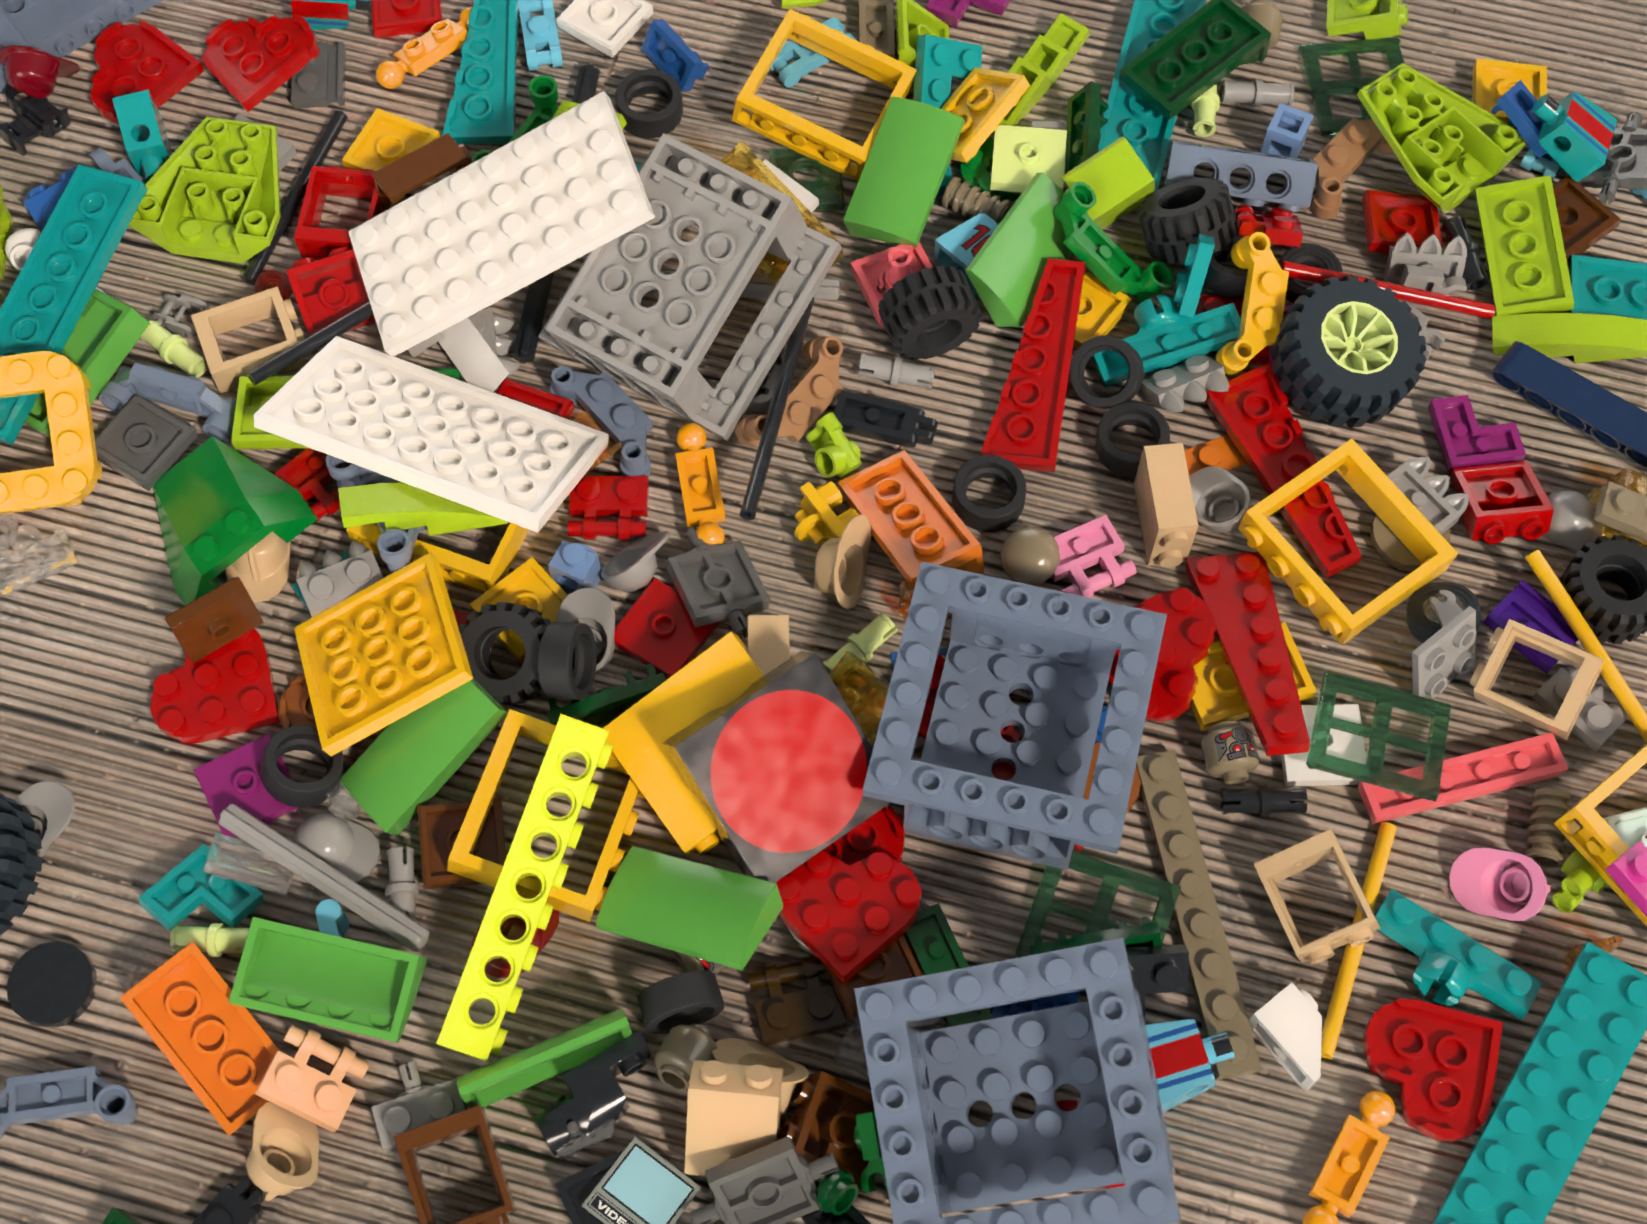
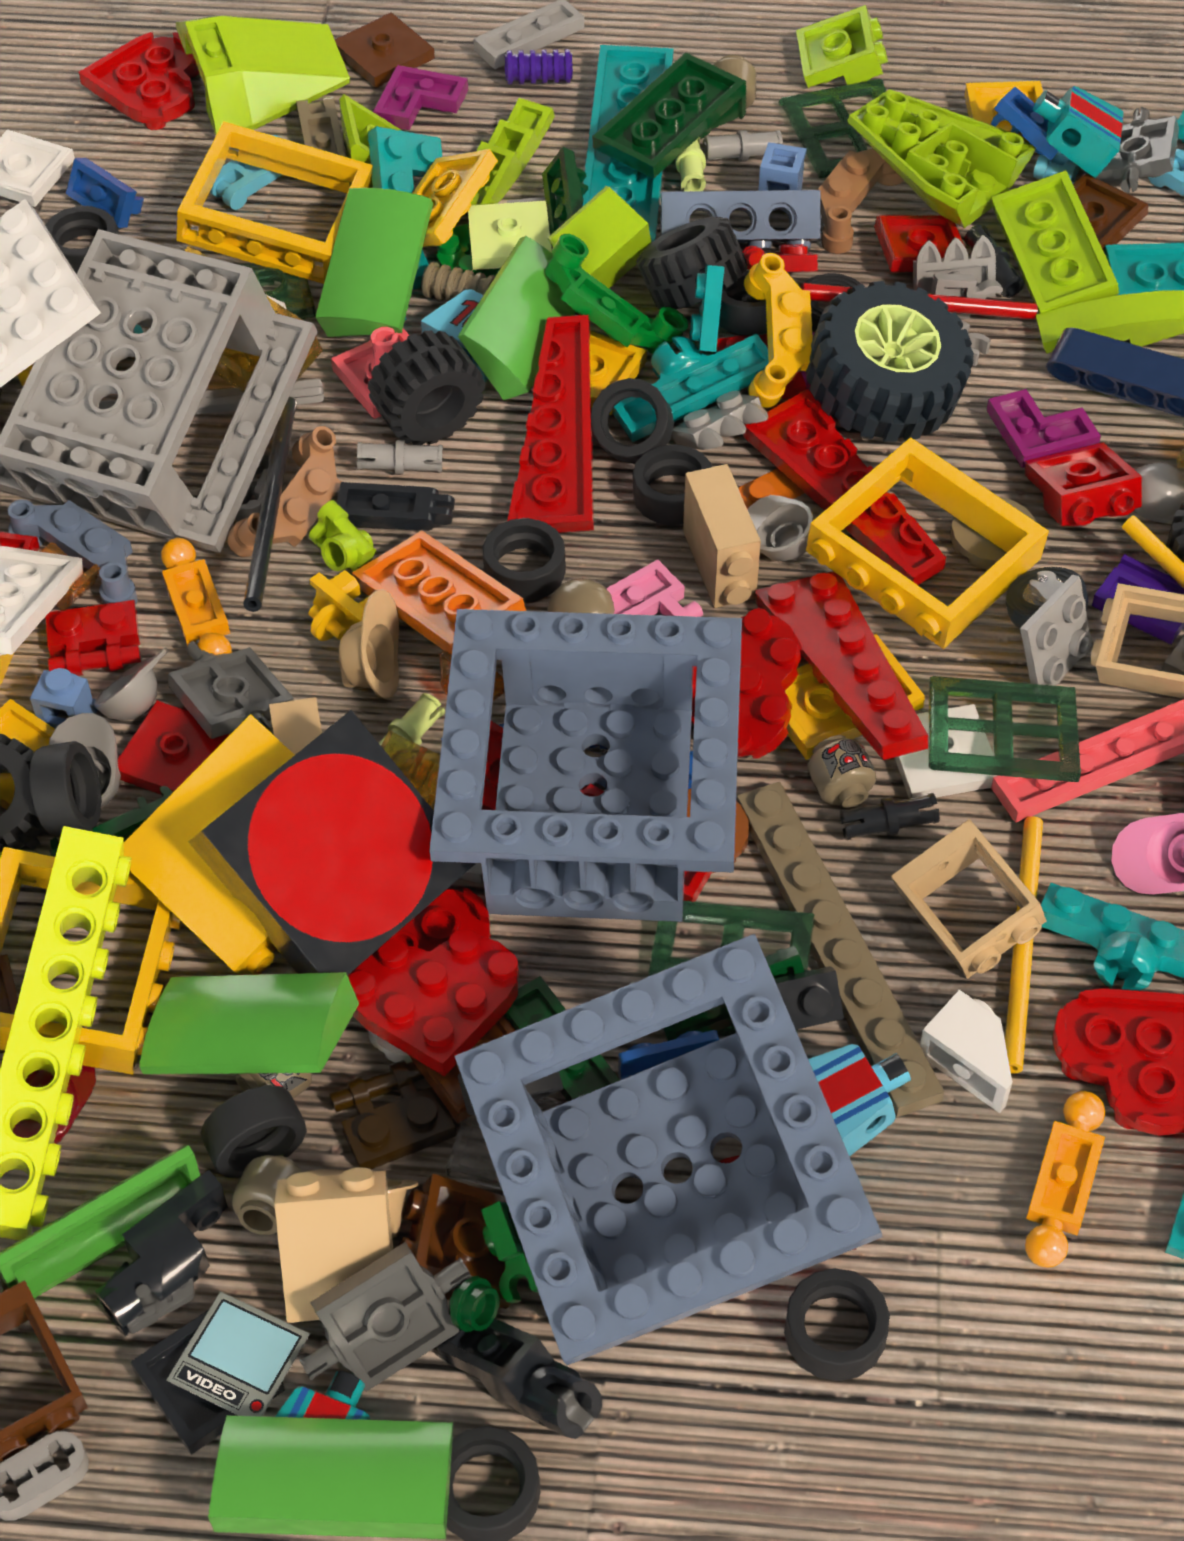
camera: 10 degrees left, 10 degrees down
(1428, 493) = (1007, 482): light grey plate -> none

